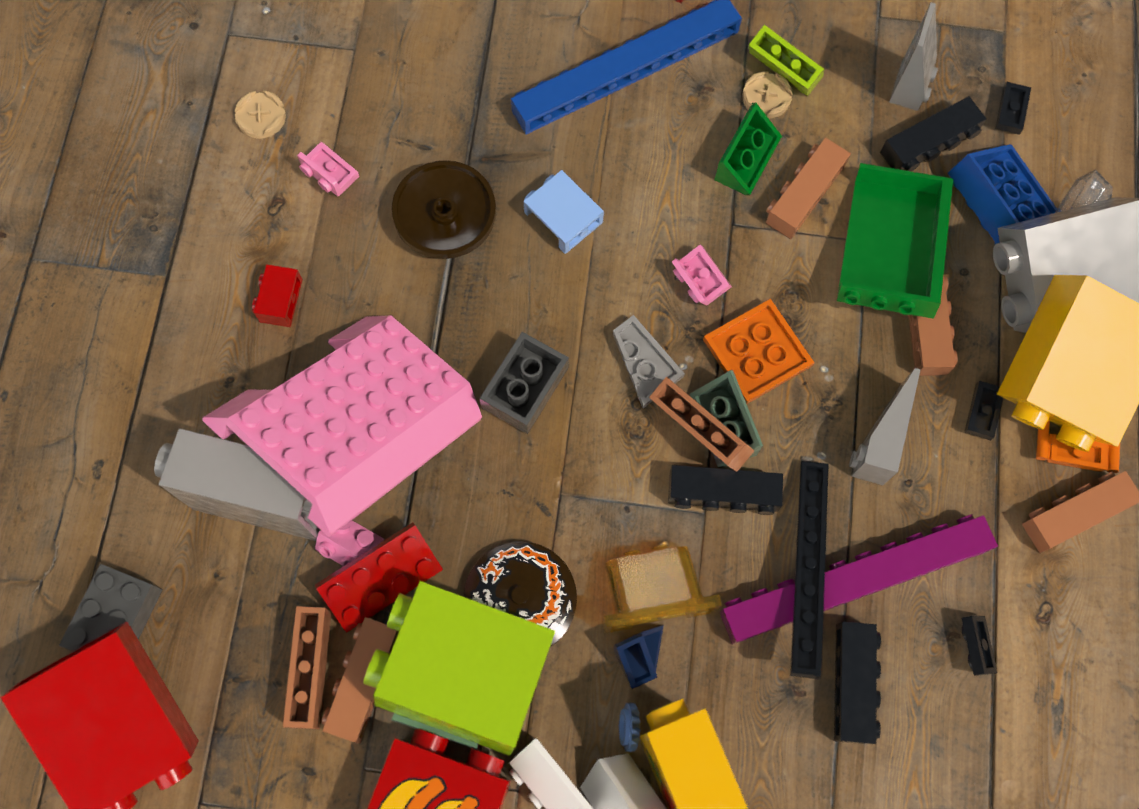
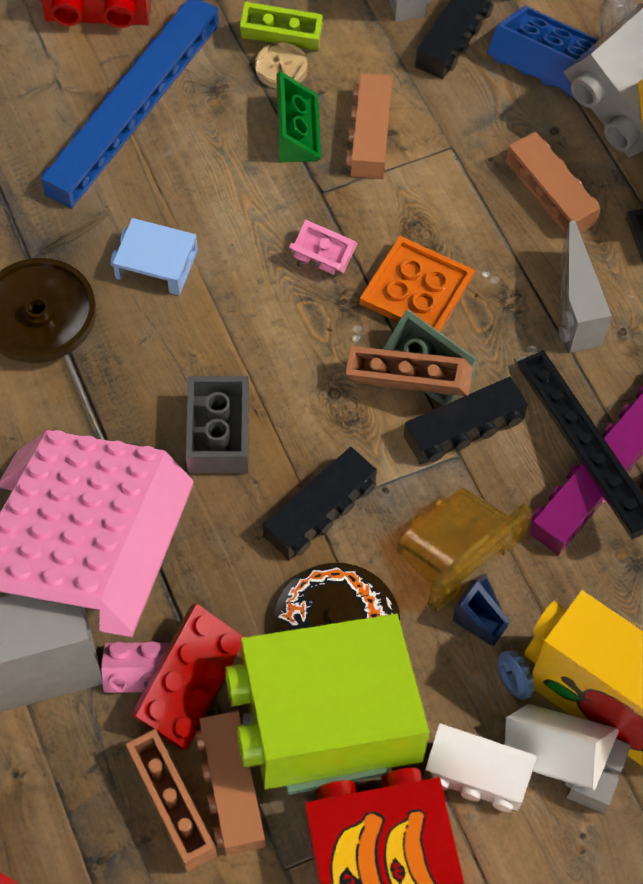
camera: 30 degrees left, 10 degrees down
(566, 492) = (320, 503): none -> black brick
(644, 359) = (316, 348): light grey wing -> none
(896, 241) = (481, 128): green panel -> none

